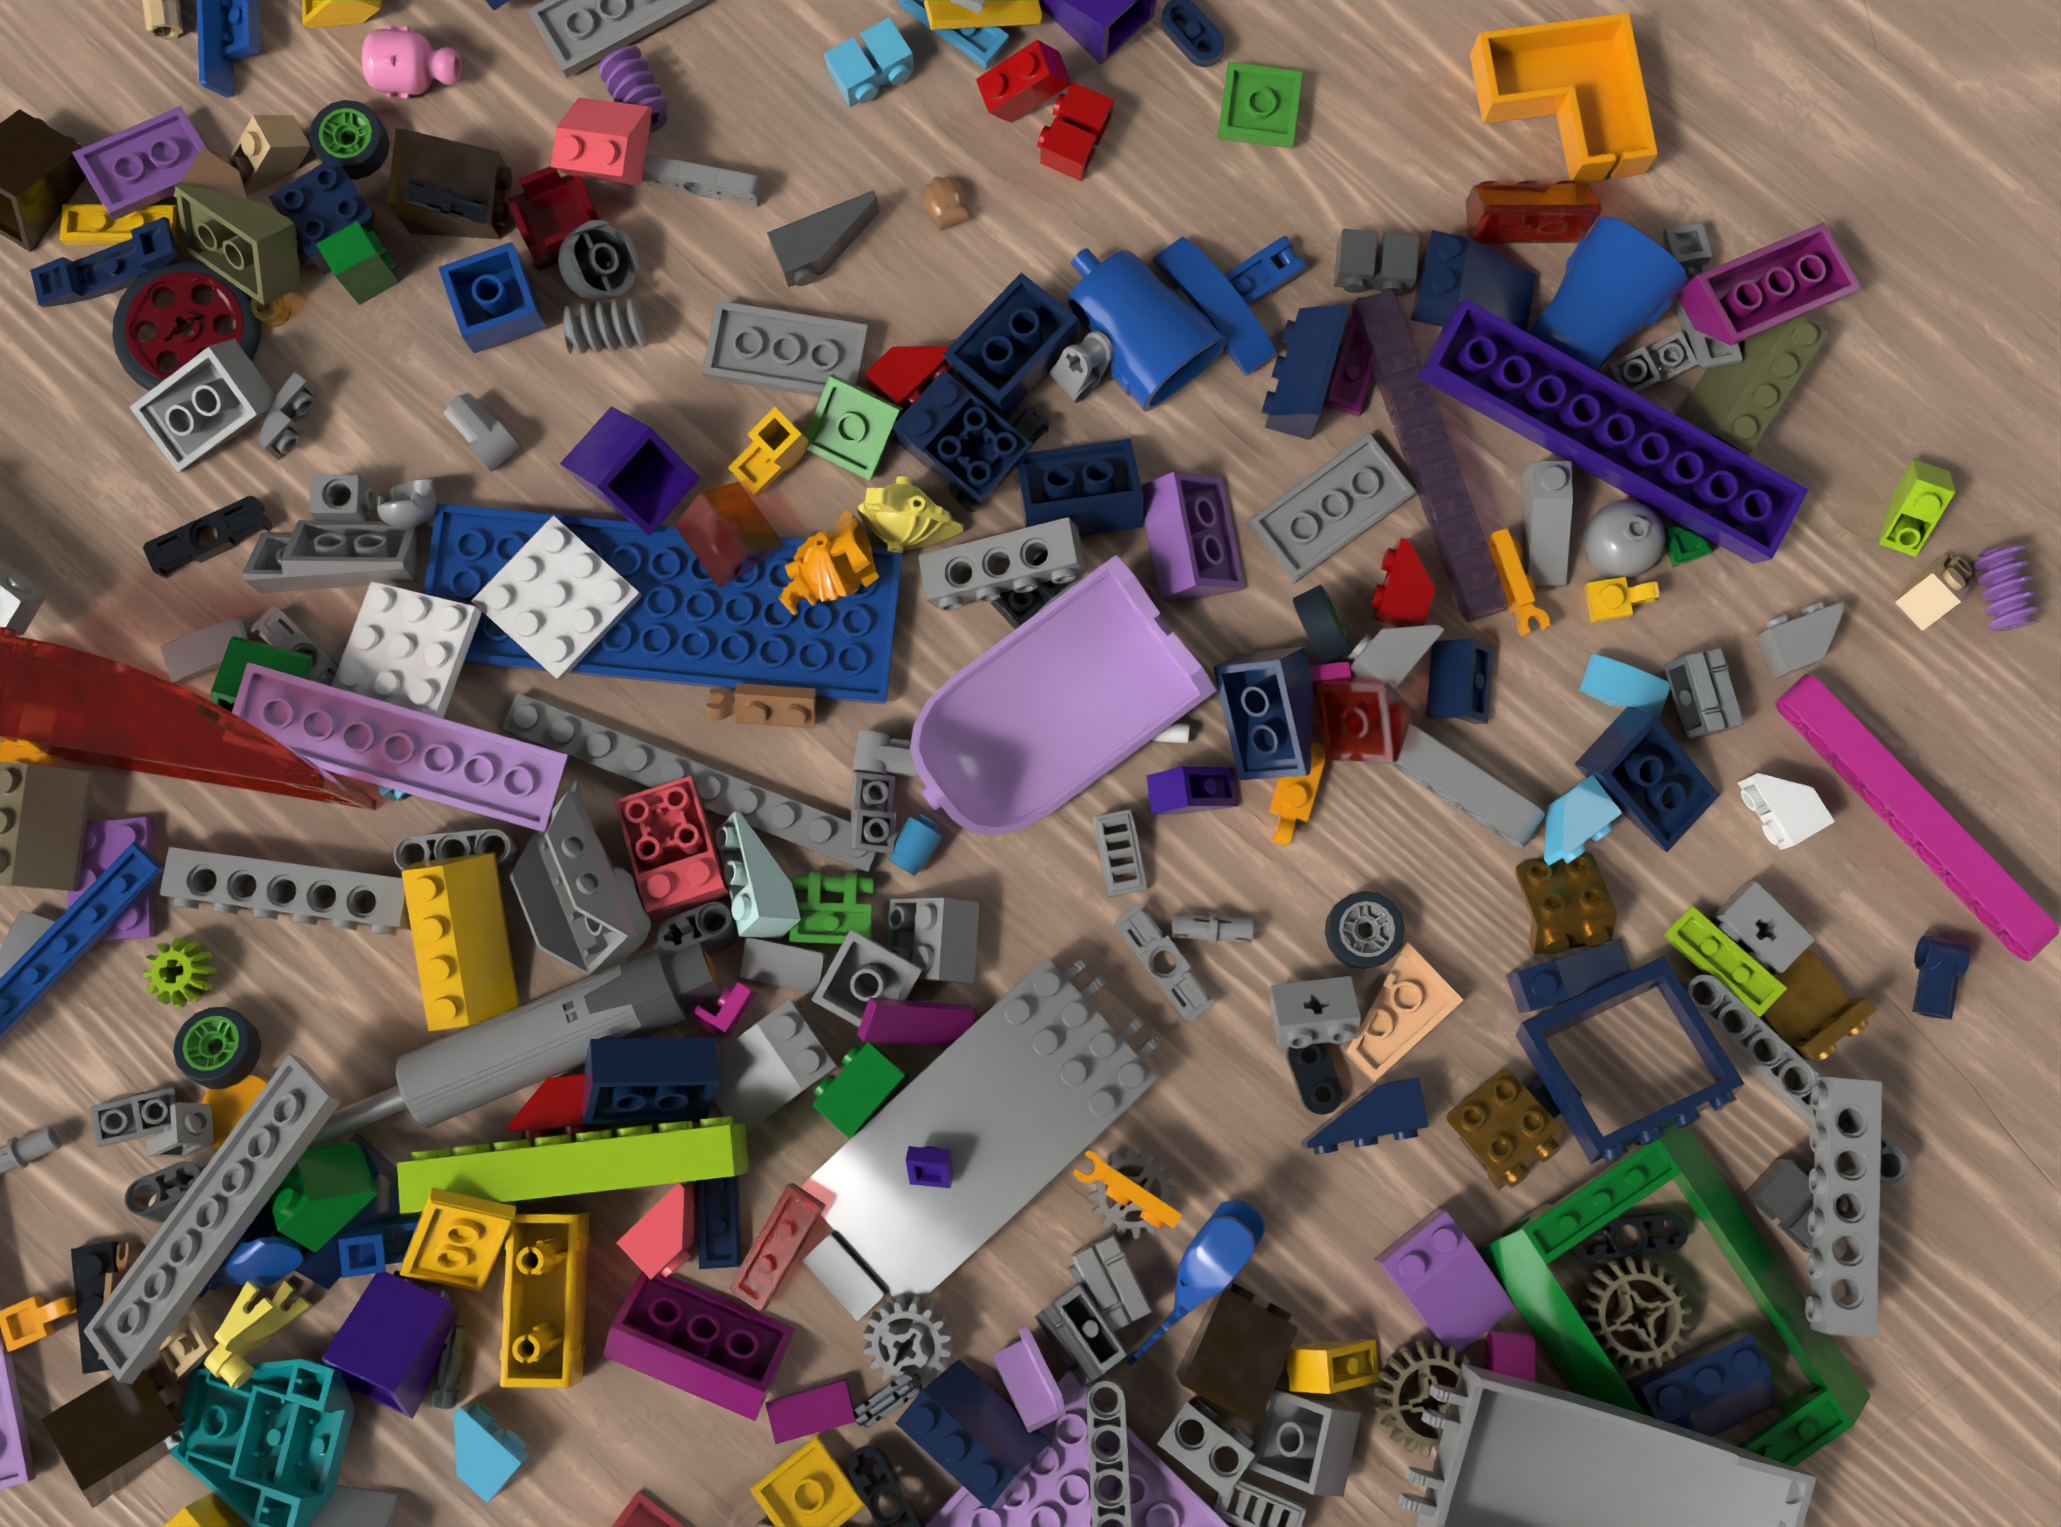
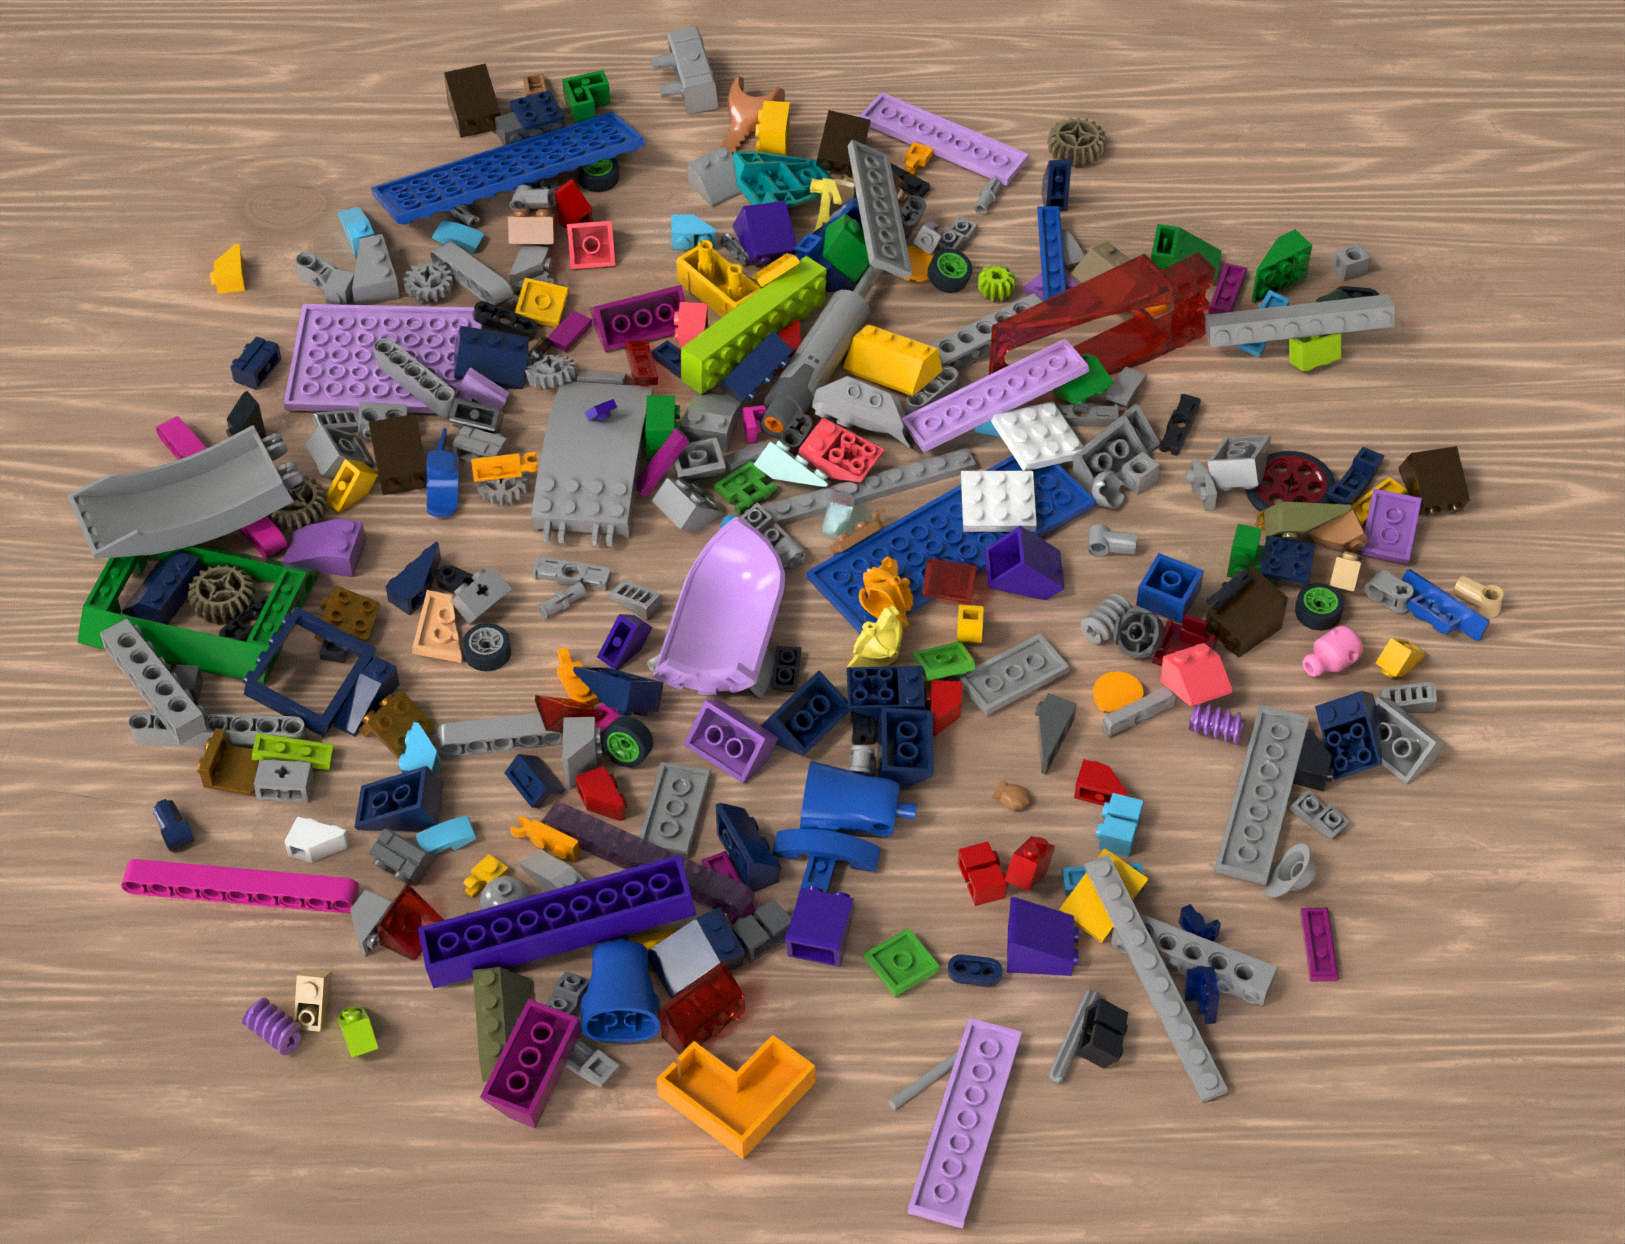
camera: 140 degrees right, 30 degrees down
(249, 85) = (1388, 590): none -> light grey piece
(694, 230) = (1116, 691): none -> light orange tile
(759, 758) = (838, 513): none -> clear light blue slope
(841, 129) = (1097, 783): none -> red slope
(943, 567) = (808, 653): light grey brick -> none
(1322, 193) = (820, 926): none -> dark purple slope
(1759, 595) = (401, 921): none -> clear red slope

